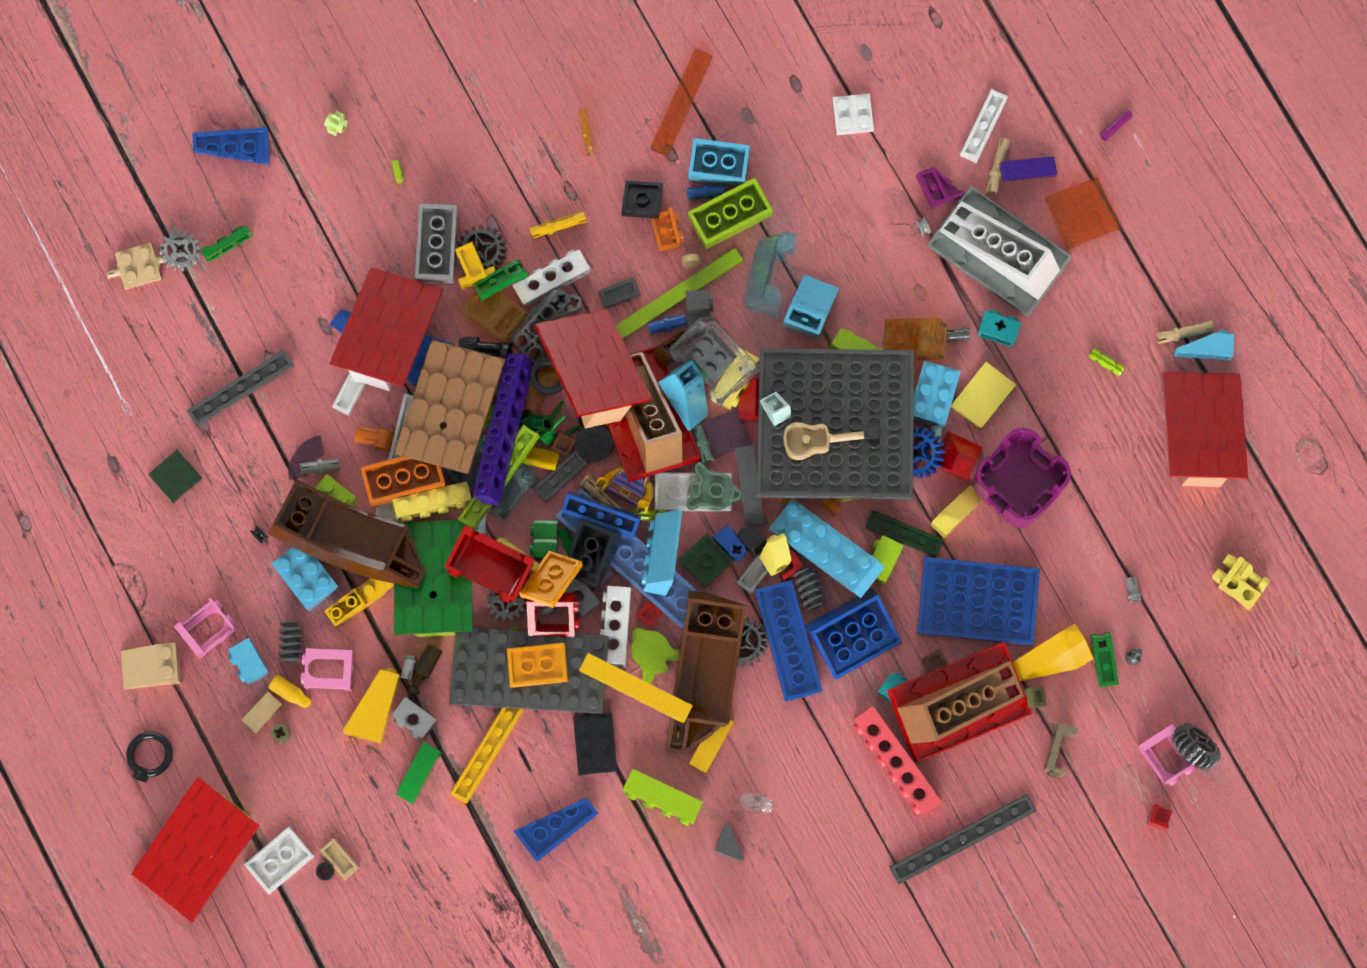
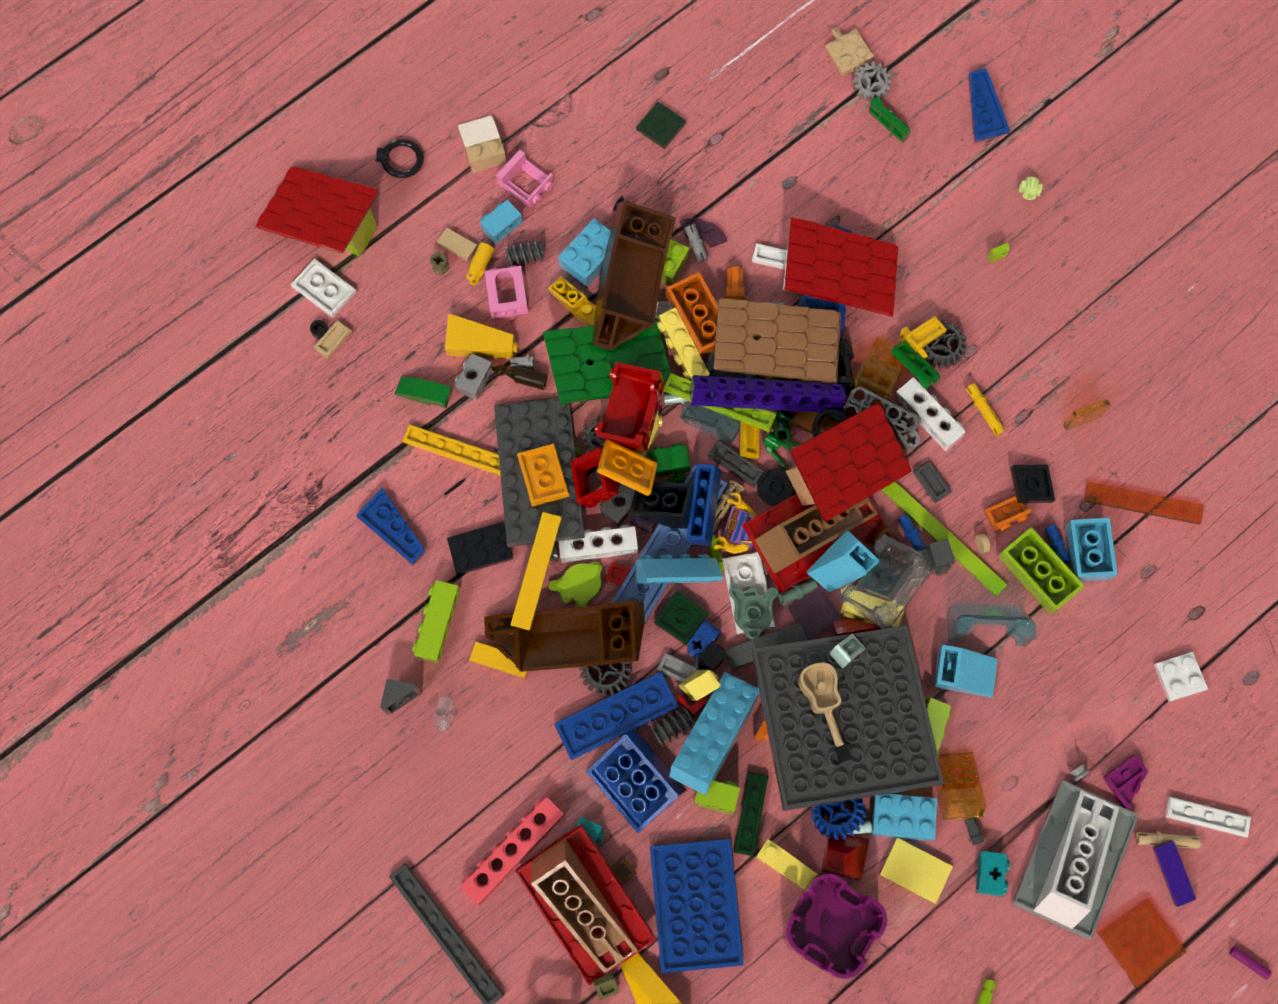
camera: 80 degrees right, 5 degrees down
(240, 388) = (755, 161): dark grey plate -> none
(436, 243) = (944, 297): light grey brick -> none
(563, 443) = (768, 457): reddish brown plate -> none

